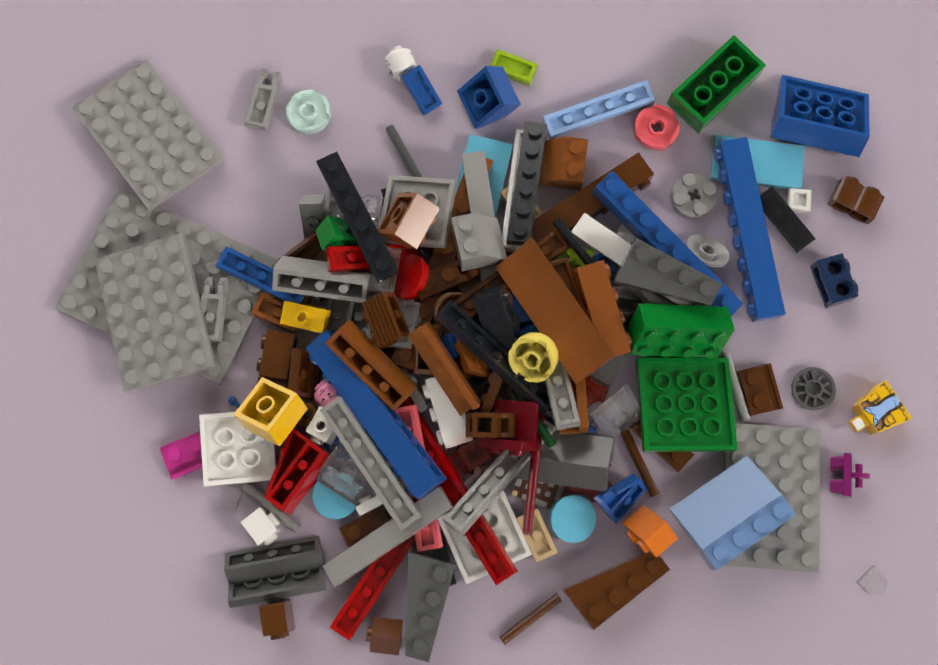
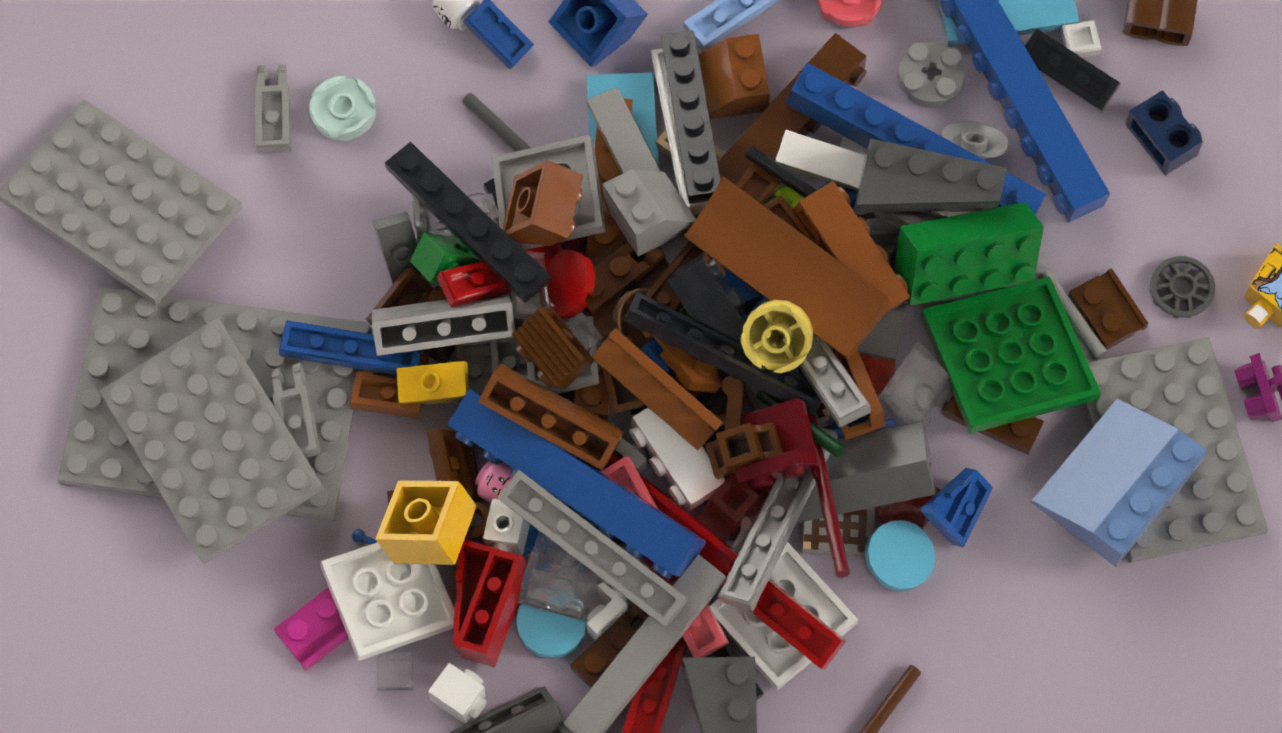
camera: 15 degrees left, 10 degrees down
(276, 355) = (406, 449): reddish brown brick -> none
(282, 516) = (444, 658): light grey bar -> none
(540, 541) = (859, 595): tan plate -> none
(613, 588) = (983, 634): reddish brown wedge -> none
(639, 462) = (970, 455): reddish brown bar -> none
(649, 531) = (1013, 535): orange brick -> none

